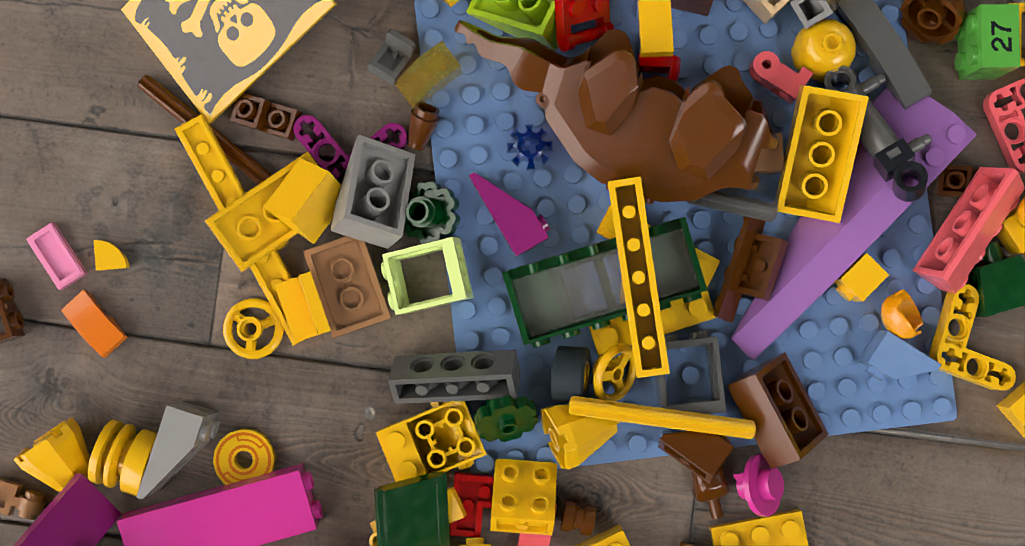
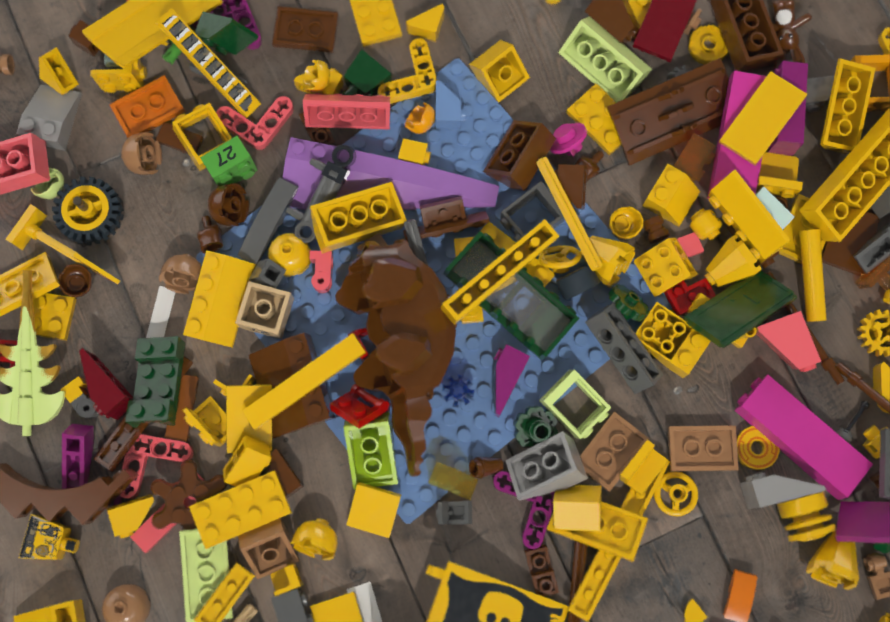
camera: 125 degrees left, 10 degrees down
(282, 394) = (702, 448): none -> medium nougat plate
(609, 485) = (626, 222): none -> yellow hair
(906, 460) = (500, 70): none -> yellow slope

